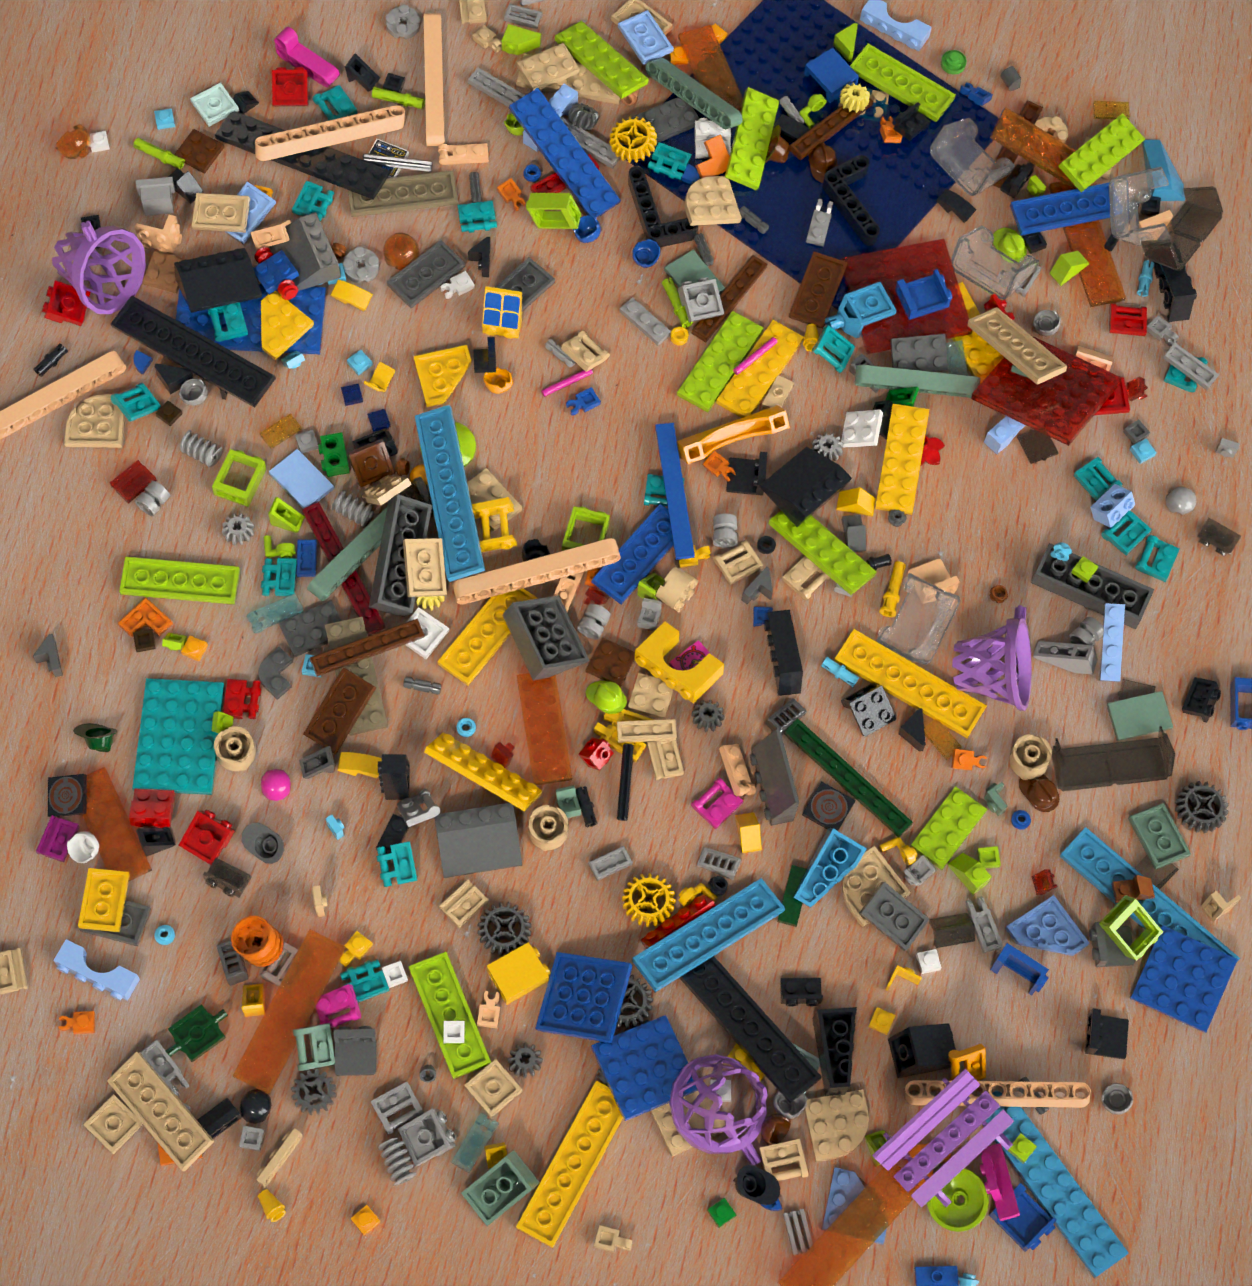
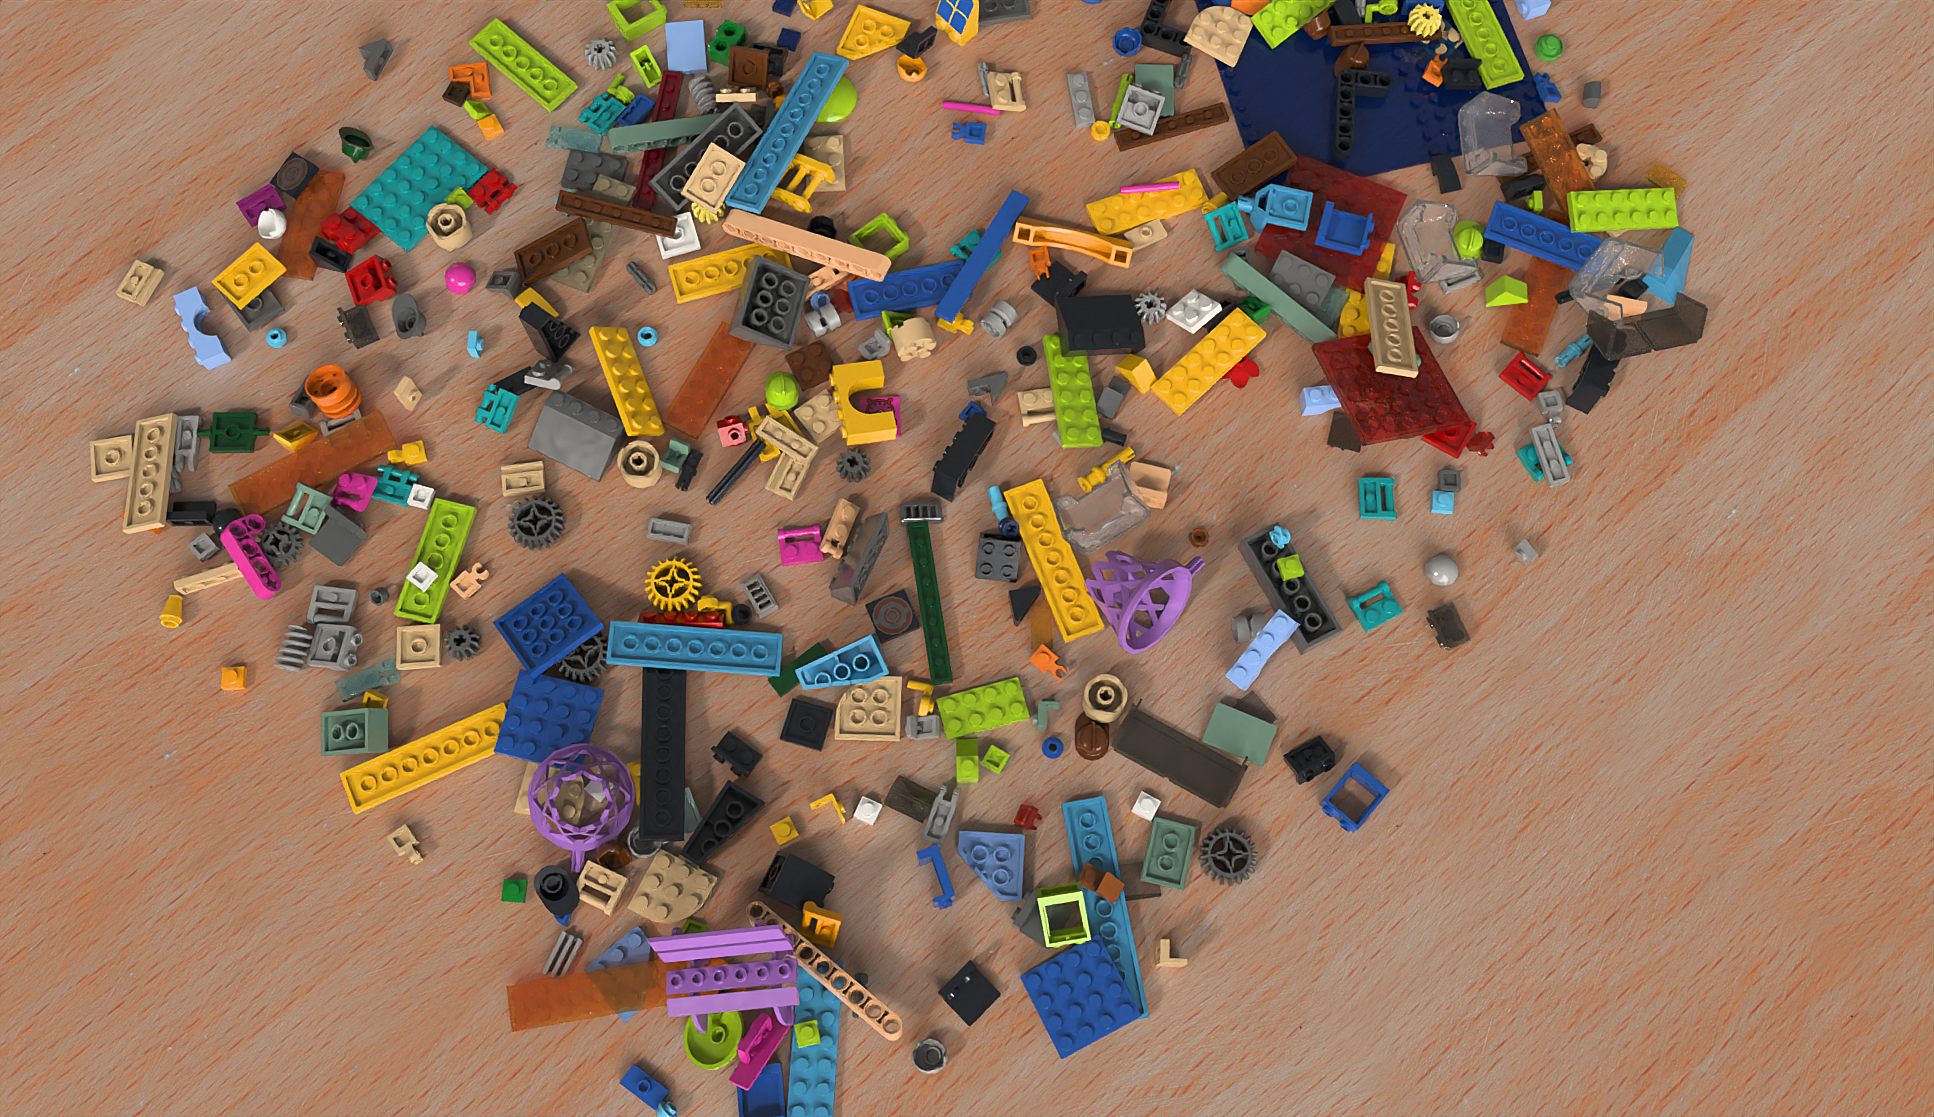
camera: 40 degrees right, 5 degrees up
(81, 1022) = (158, 361): orange plate -> none
(270, 672) = (532, 185): dark grey plate -> none
(303, 1116) = (265, 580): none -> dark pink beam
(306, 441) = (715, 18): light grey plate -> none
(503, 754) = (657, 379): clear red tile -> none
(518, 973) = (517, 567): yellow brick -> none
(578, 608) = (819, 299): none -> medium blue plate
(718, 361) = (1106, 176): lime plate -> none
(741, 566) = (989, 359): tan plate -> none
(748, 832) = (805, 587): yellow slope -> none
(754, 220) = (1247, 72): dark grey axle -> none
(819, 224) = (1304, 112): light grey hinge -> none
(832, 932) = (806, 725): none -> black tile
(861, 681) = (1004, 530): none -> dark blue bush
(894, 916) = (866, 749): dark grey plate -> none
(897, 521) = (1162, 414): dark grey plate -> none
(1071, 657) = (1215, 635): light grey slope -> none
(1099, 359) = (1464, 390): light nougat panel -> none
(1112, 505) = (1369, 530): light blue brick -> none
(1117, 814) = (1146, 806): none -> white plate
(1130, 536) = (1366, 569): teal plate -> none

